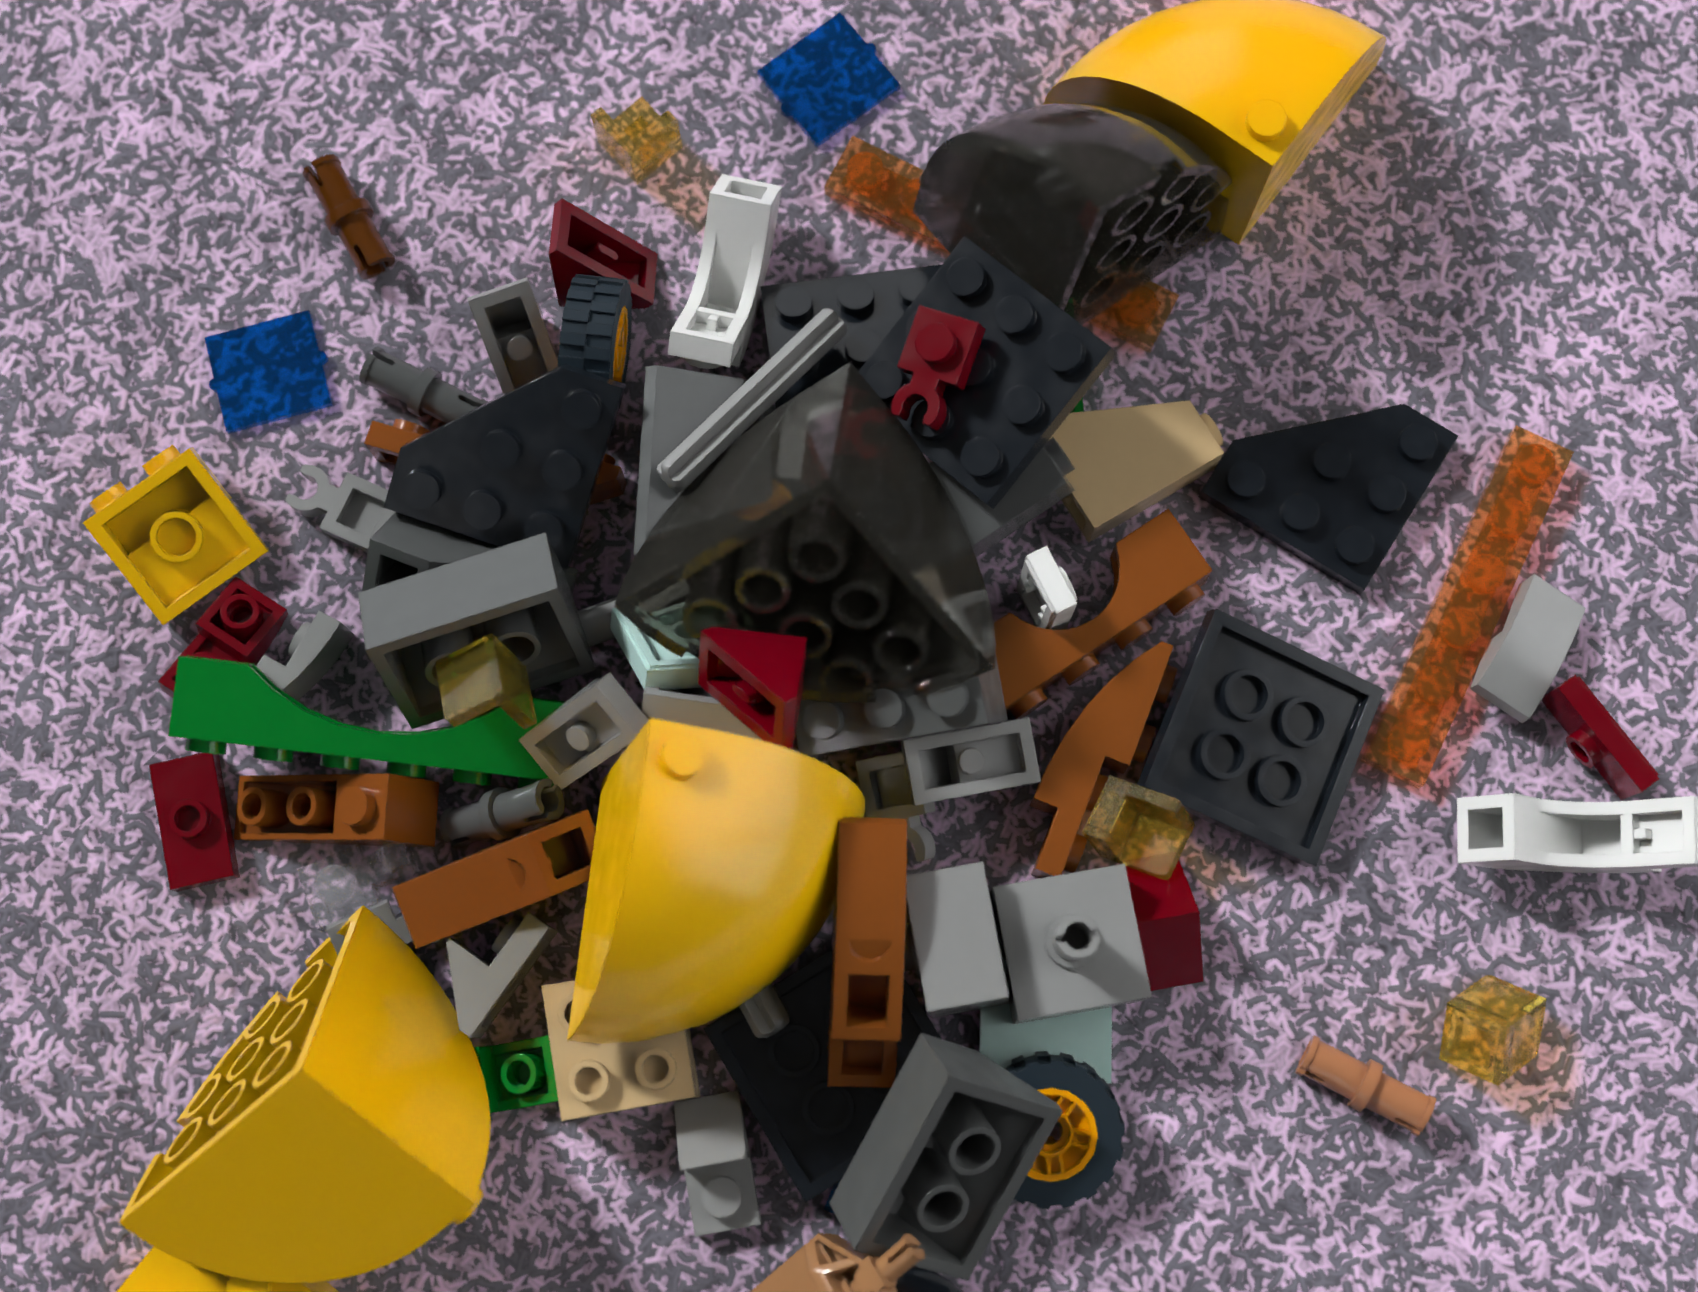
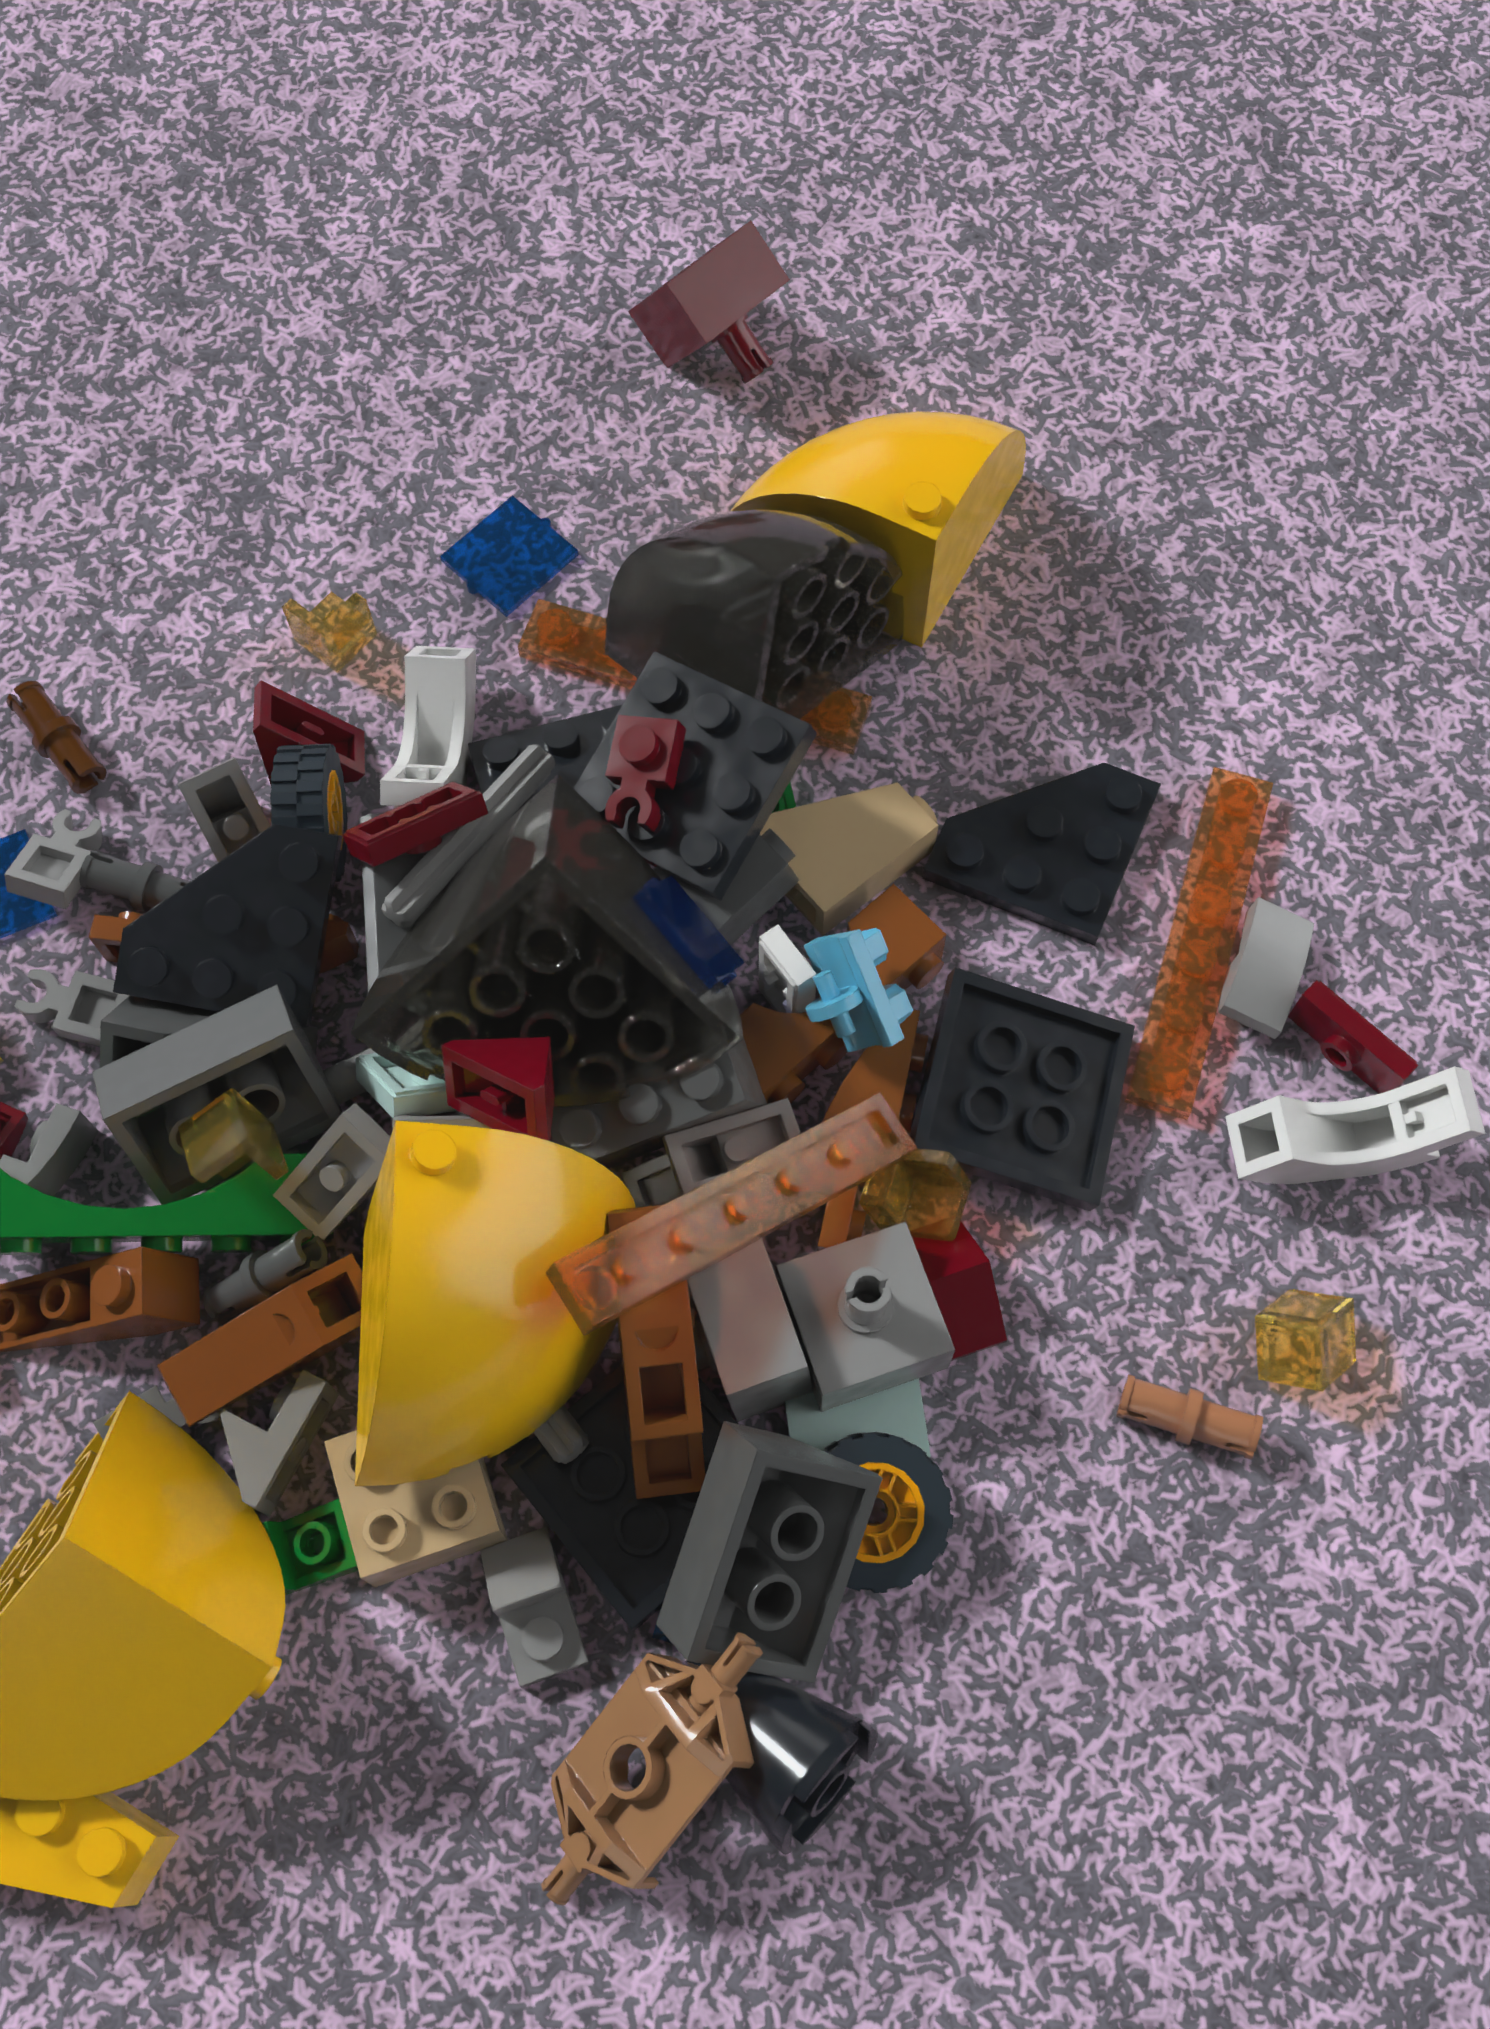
camera: 10 degrees left, 10 degrees down
(333, 358) = (52, 866): none -> light grey plate
(349, 880) = (114, 1368): clear plate -> none
(701, 387) = (415, 825): none -> dark red plate
(958, 543) = (689, 931): none -> clear blue piece
(958, 839) = (728, 1213): none -> clear orange plate
(1108, 621) = (852, 992): none -> medium azure hips

